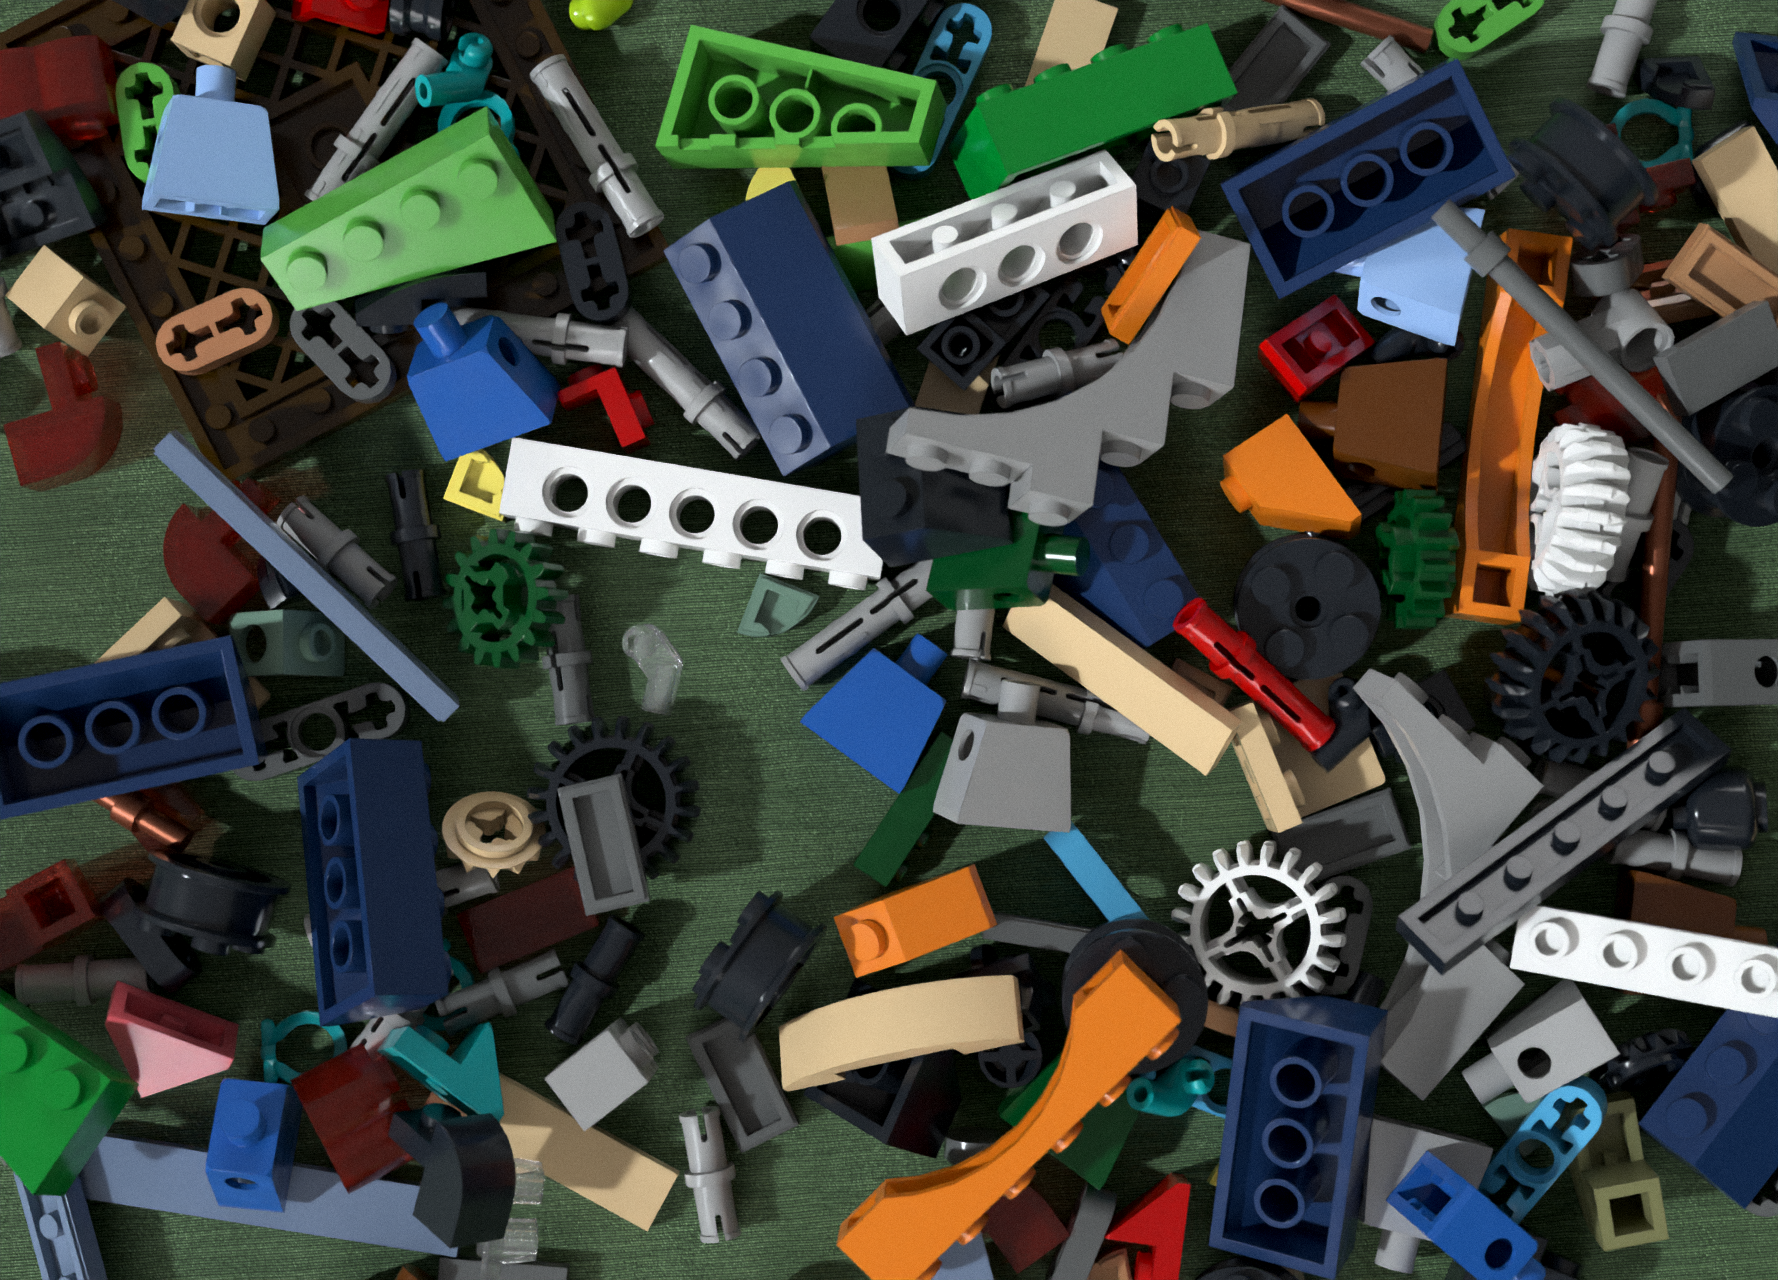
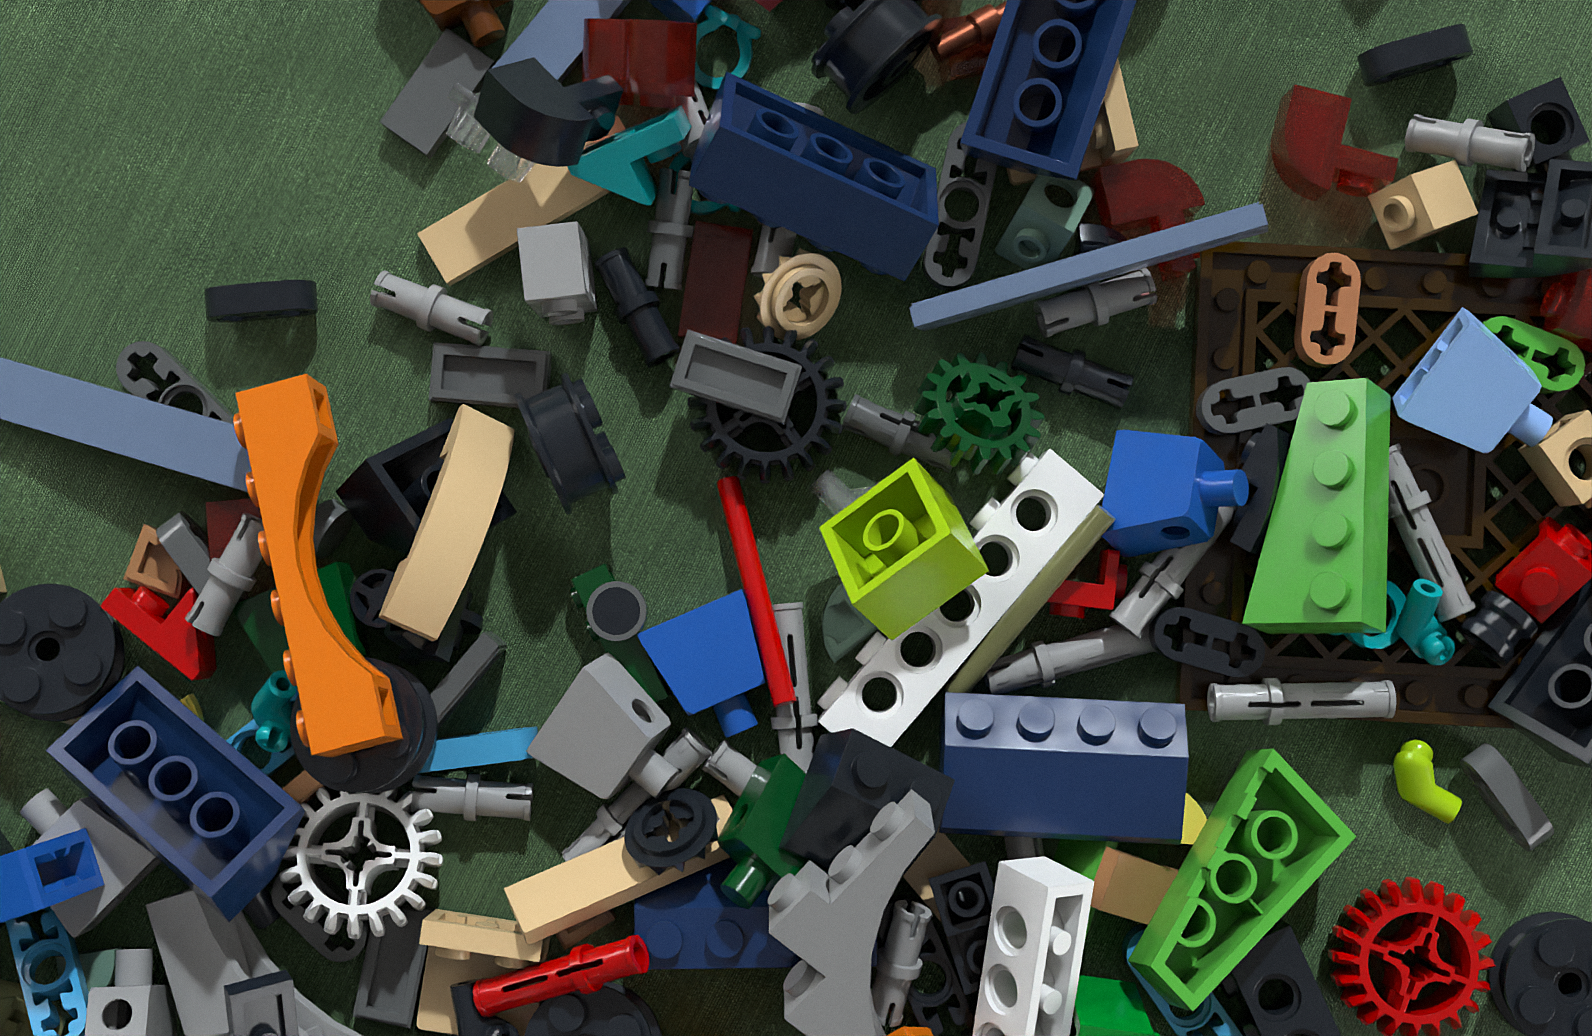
camera: 125 degrees right, 0 degrees up
(477, 484) = (1083, 444): light yellow tile -> none
(651, 446) = (1031, 601): none -> olive bar
(673, 593) = (902, 549): none -> lime brick
(794, 707) = (756, 592): none -> red bar
(889, 825) = (616, 611): none -> black tile
(915, 920) = (529, 586): orange slope -> none
(1068, 676) = (650, 826): none -> black gear
(1071, 1206) = (228, 578): none -> light grey pin
(1143, 857) = (472, 797): none -> light grey pin

